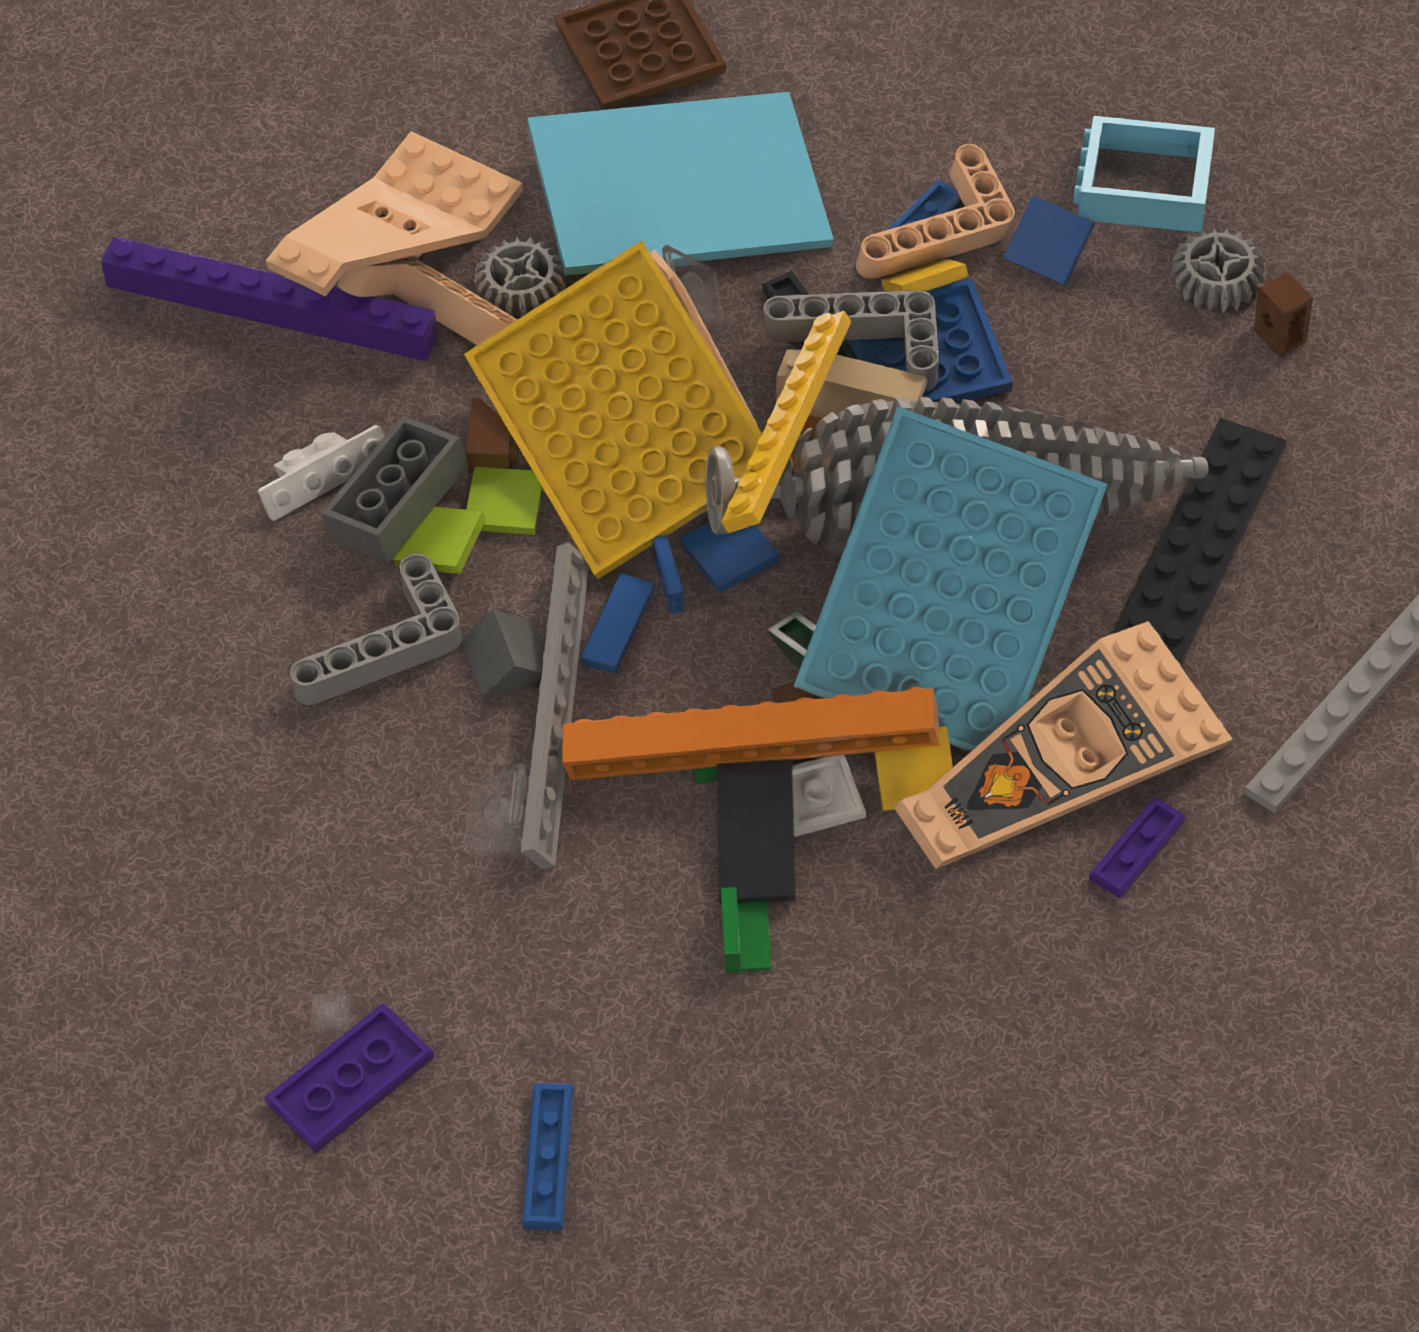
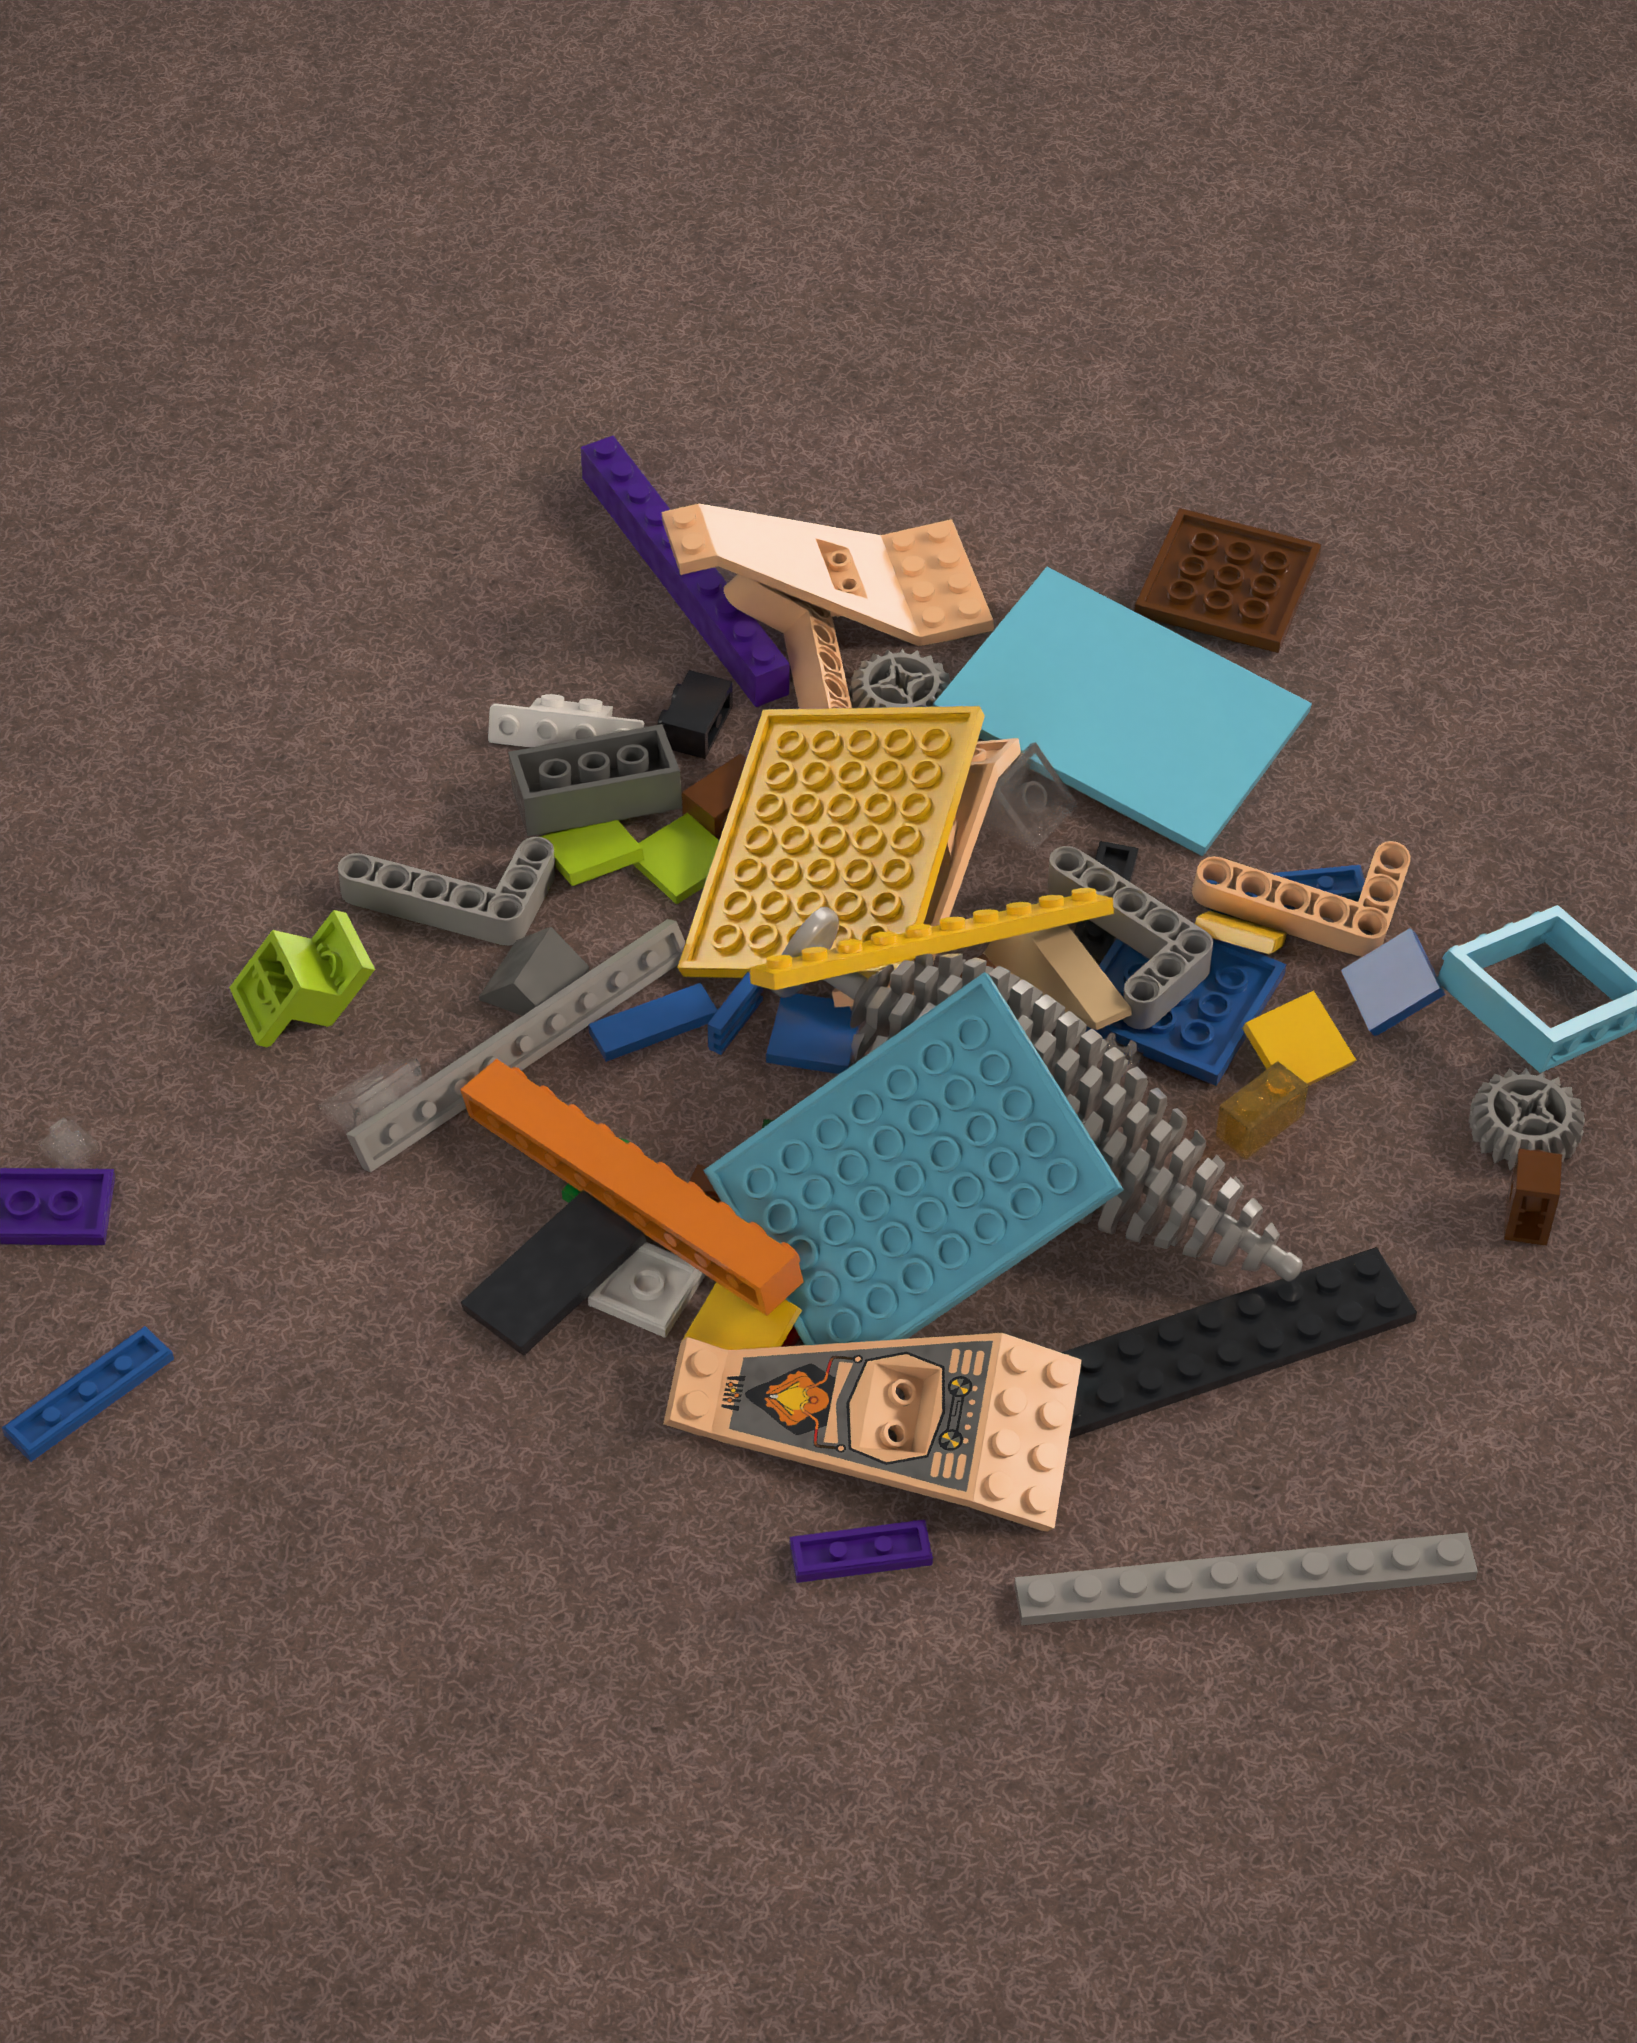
camera: 40 degrees right, 5 degrees down
(362, 775) = (301, 978): none -> lime bracket
(399, 391) = (697, 713): none -> black brick
(745, 934) = (446, 1344): green panel -> none
(1035, 324) = (1300, 1039): none -> yellow tile
(1064, 381) = (1261, 1110): none -> clear yellow brick

